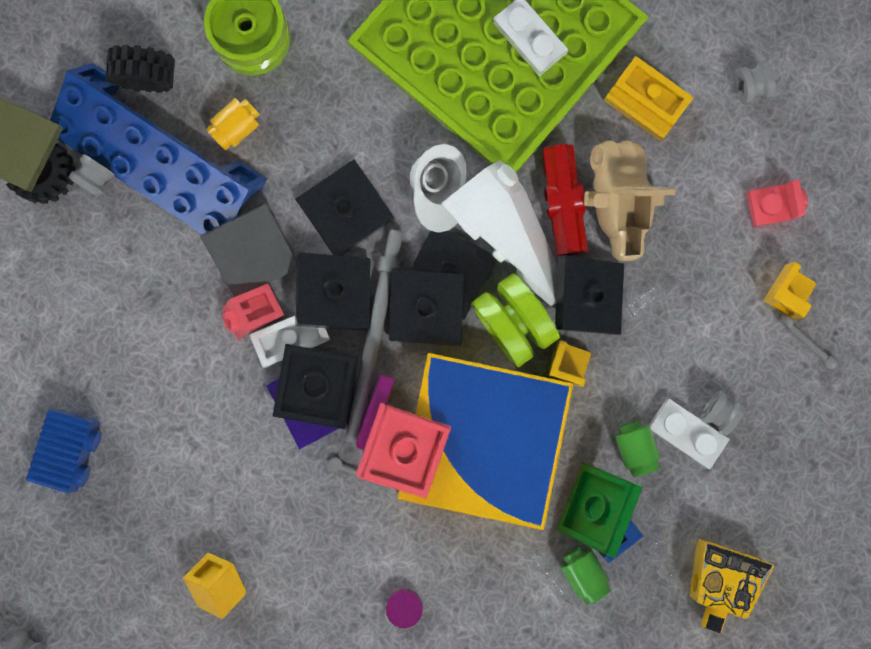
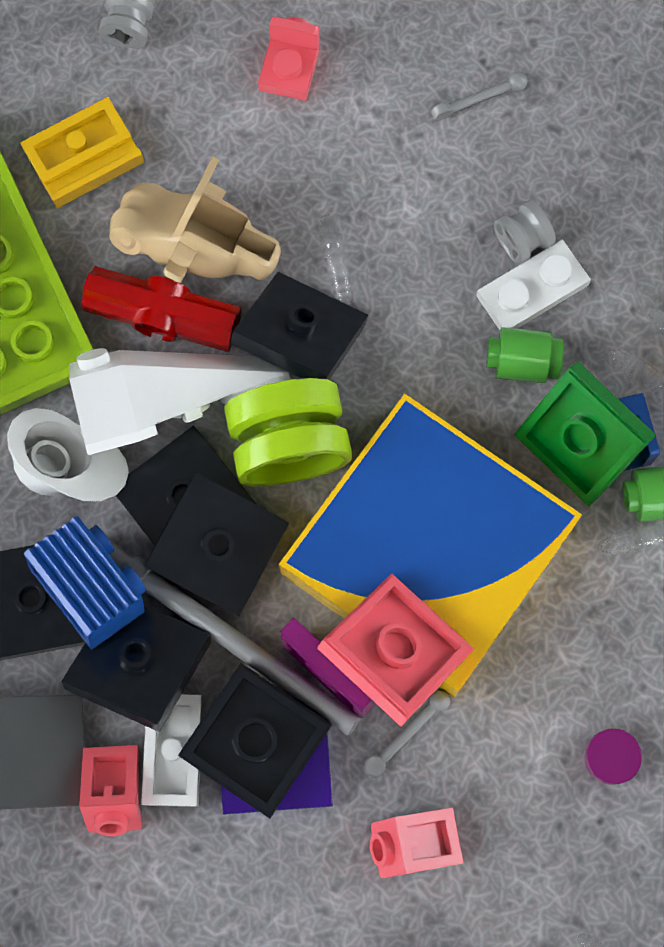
camera: 65 degrees left, 10 degrees down
(298, 510) = (415, 843): none -> coral bracket
(365, 238) = (85, 581): none -> blue brick
(568, 363) = (374, 394): yellow panel -> none
(791, 292) = (408, 89): yellow panel -> none

